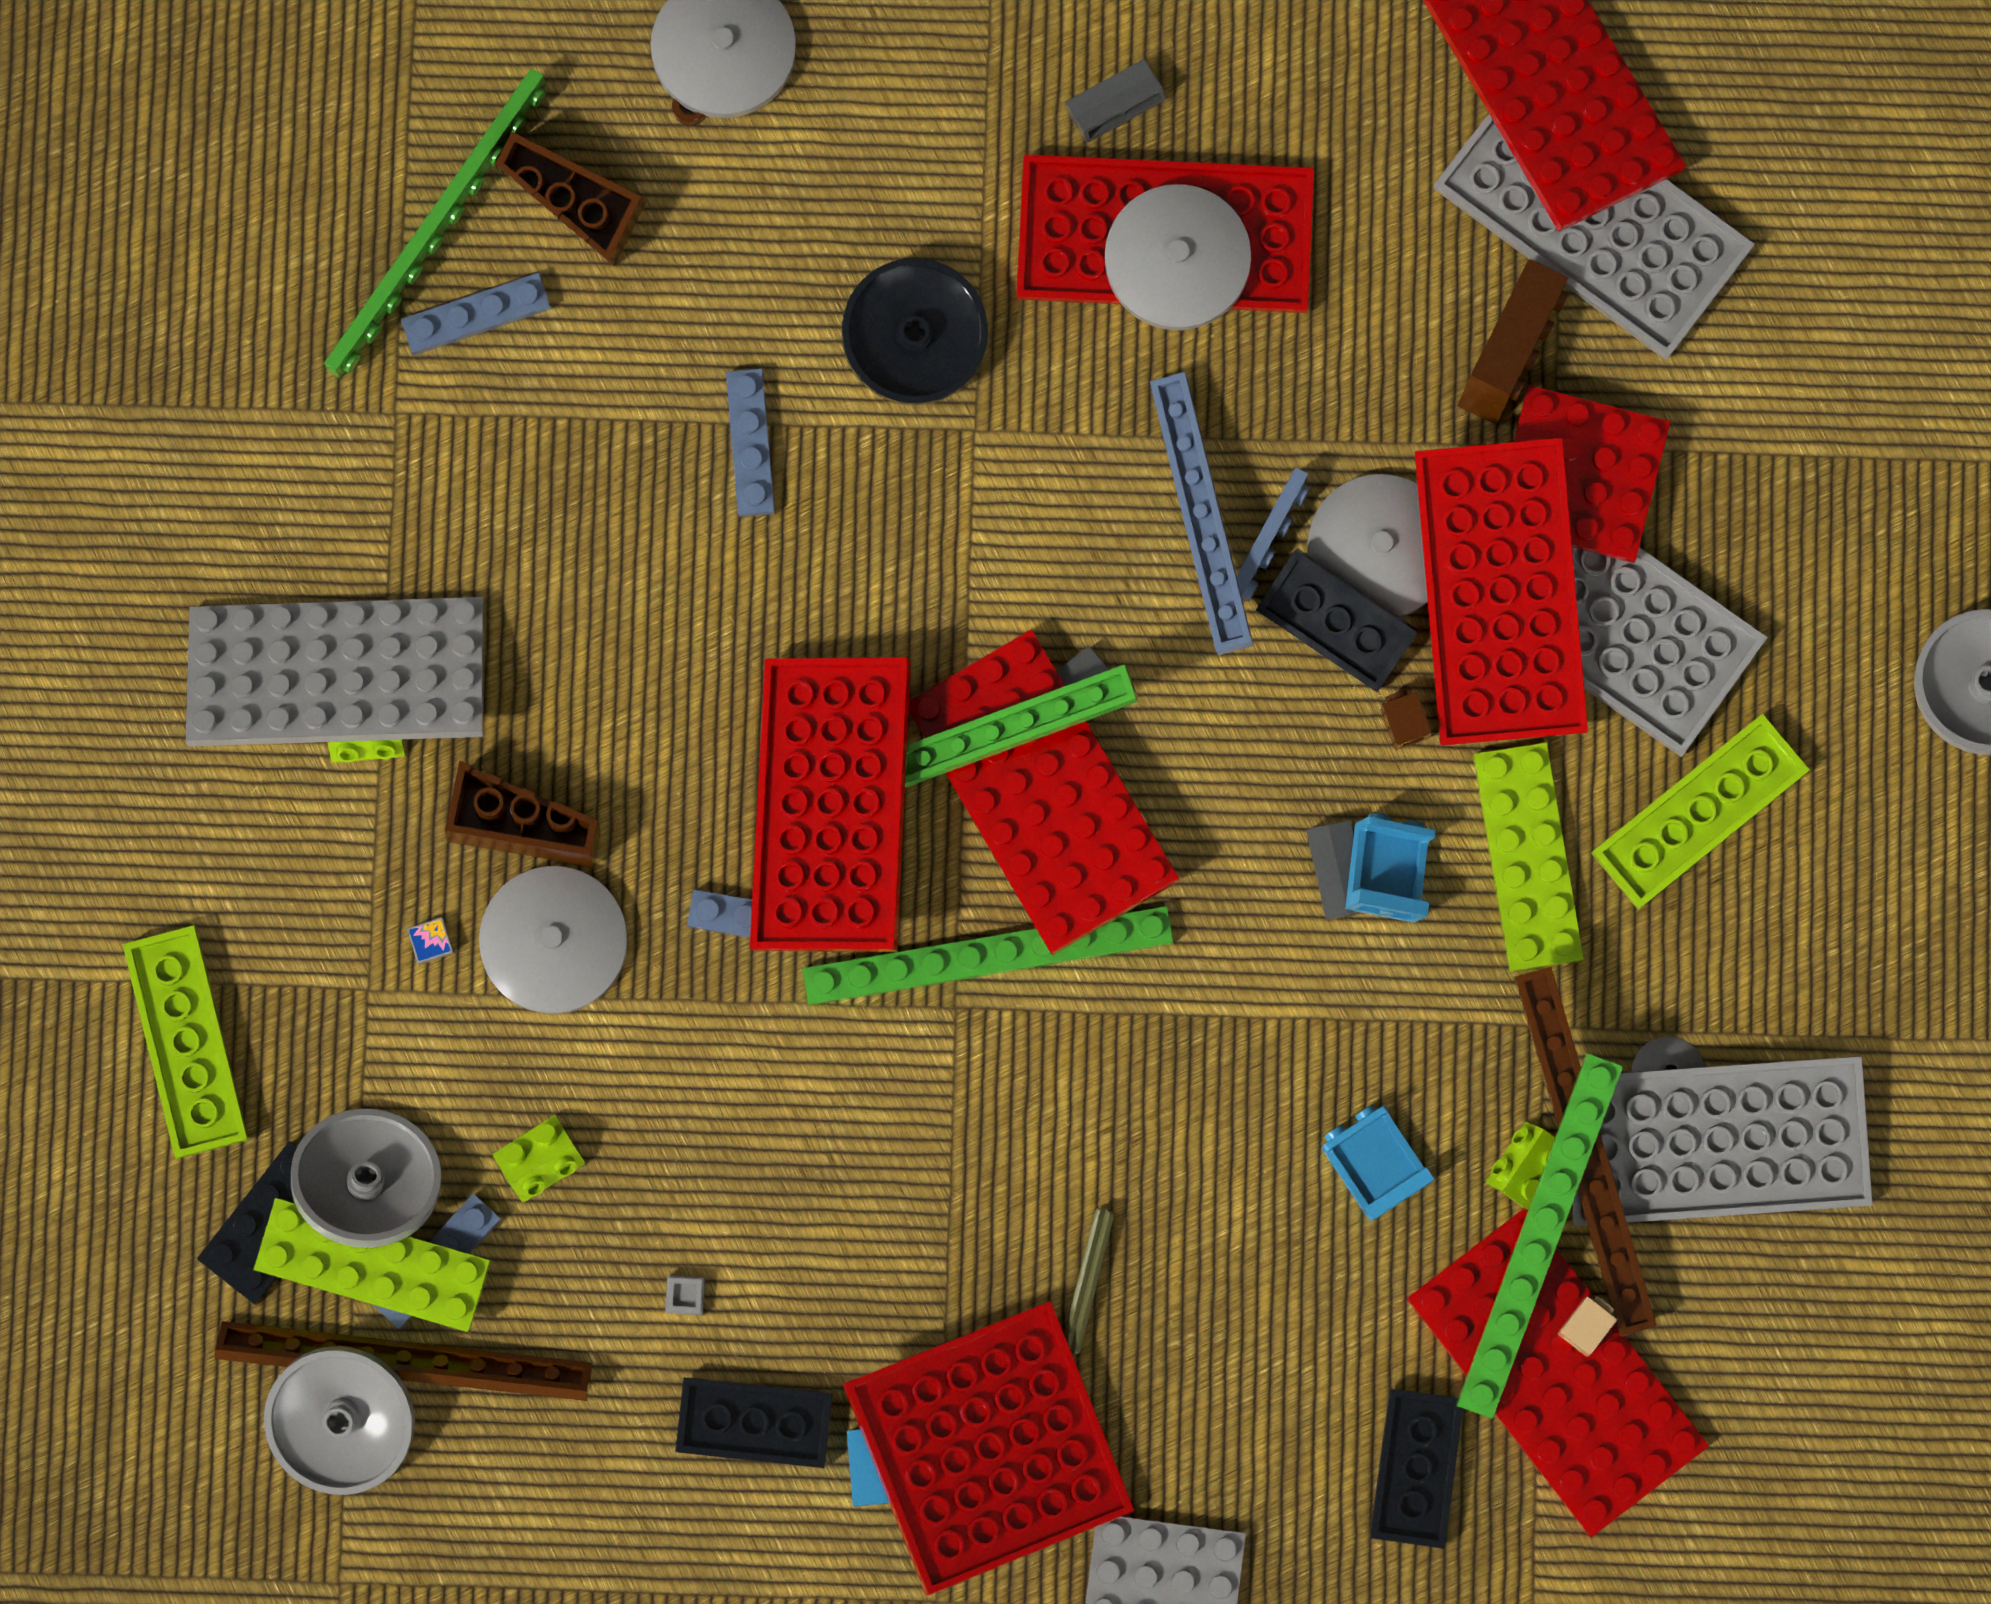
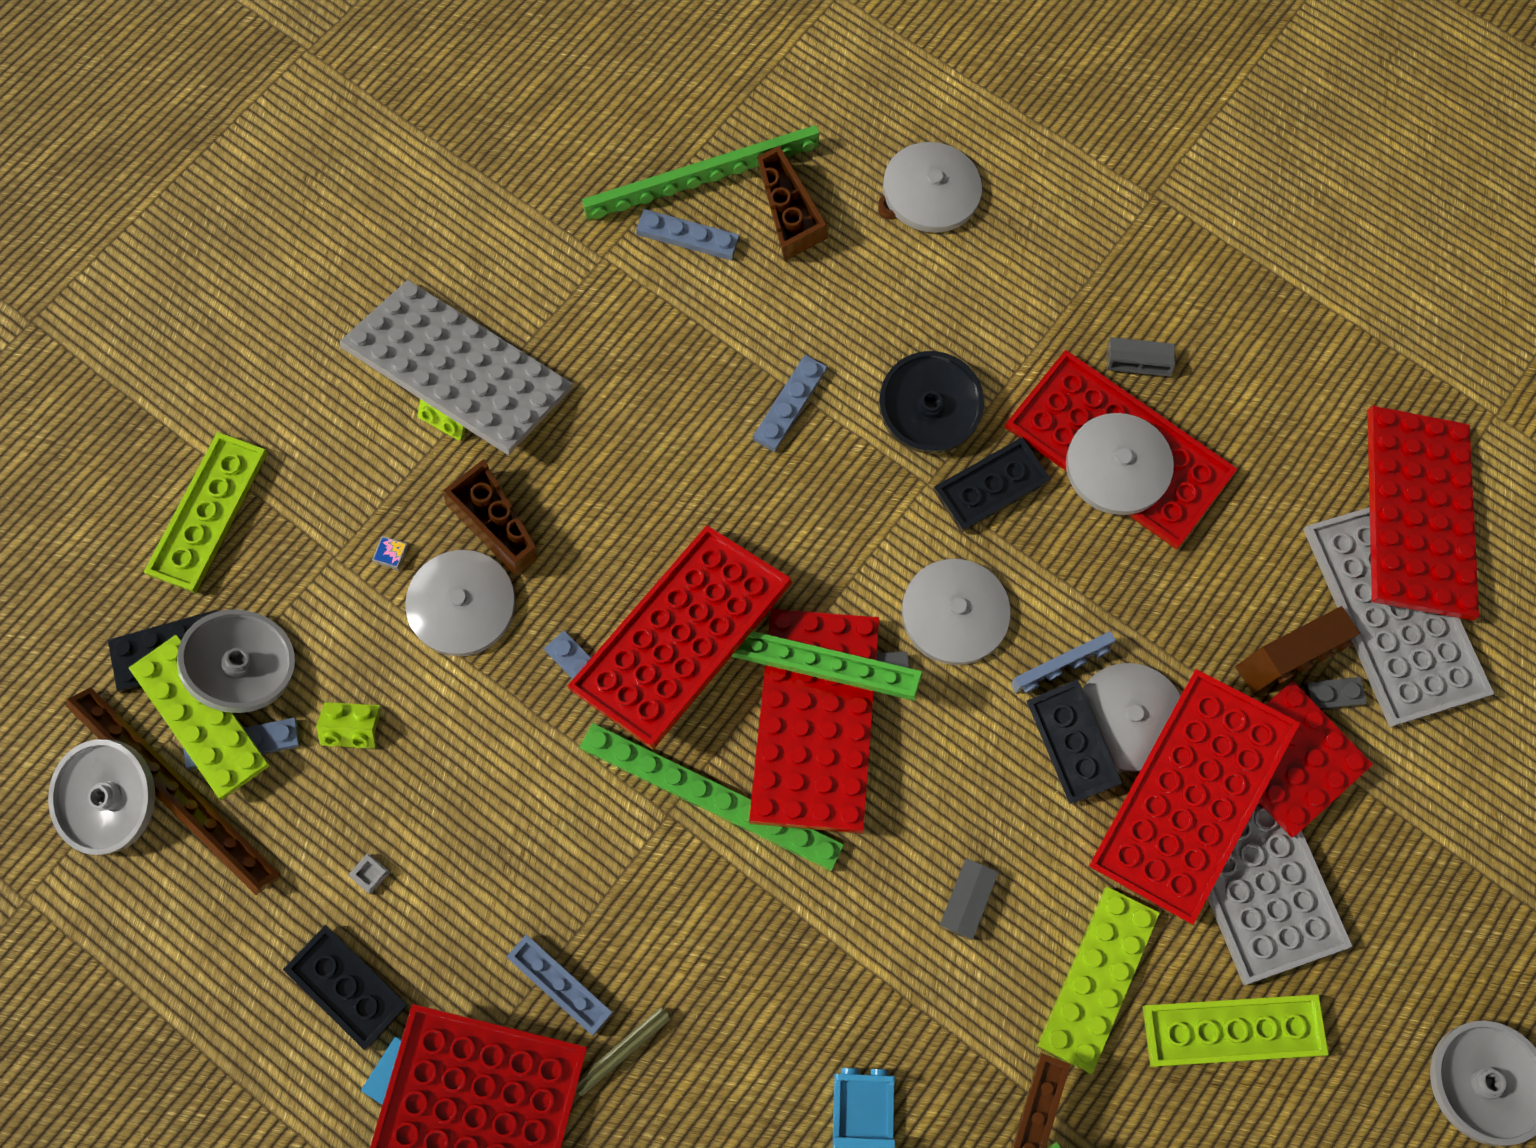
camera: 30 degrees right, 10 degrees down
(974, 1261) = (559, 985): none -> sand blue plate
(1049, 381) = (991, 484): none -> black plate
(1110, 560) = (955, 611): none -> light grey dish
(1201, 513) = (1031, 621): sand blue plate -> none
(1388, 868) = (1003, 921): dark azure panel -> none
(1405, 719) = (1076, 833): reddish brown brick -> none
(1585, 362) = (1336, 693): none -> dark grey plate

